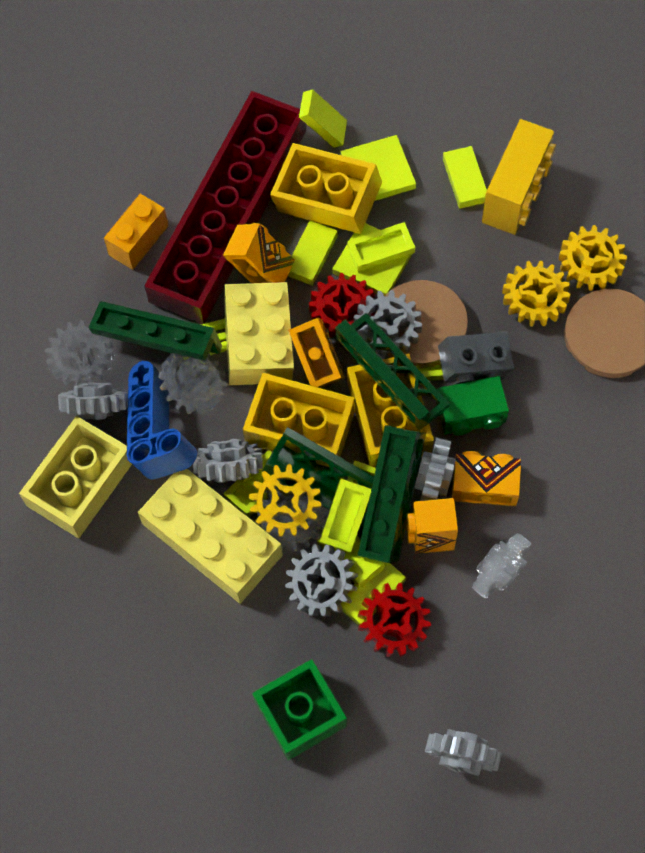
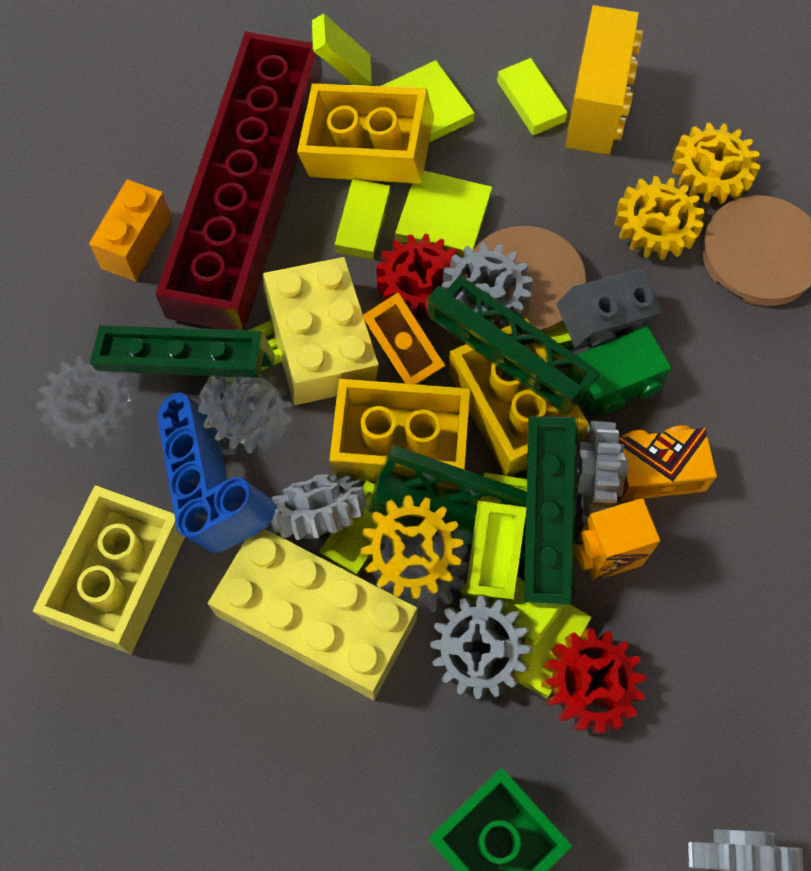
camera: 15 degrees left, 0 degrees up
(93, 400) = (115, 460): light grey gear -> none
(258, 254) = (297, 228): light orange brick -> none
(381, 247) = (451, 194): neon yellow tile -> none
(501, 565) = (722, 577): clear gear -> none

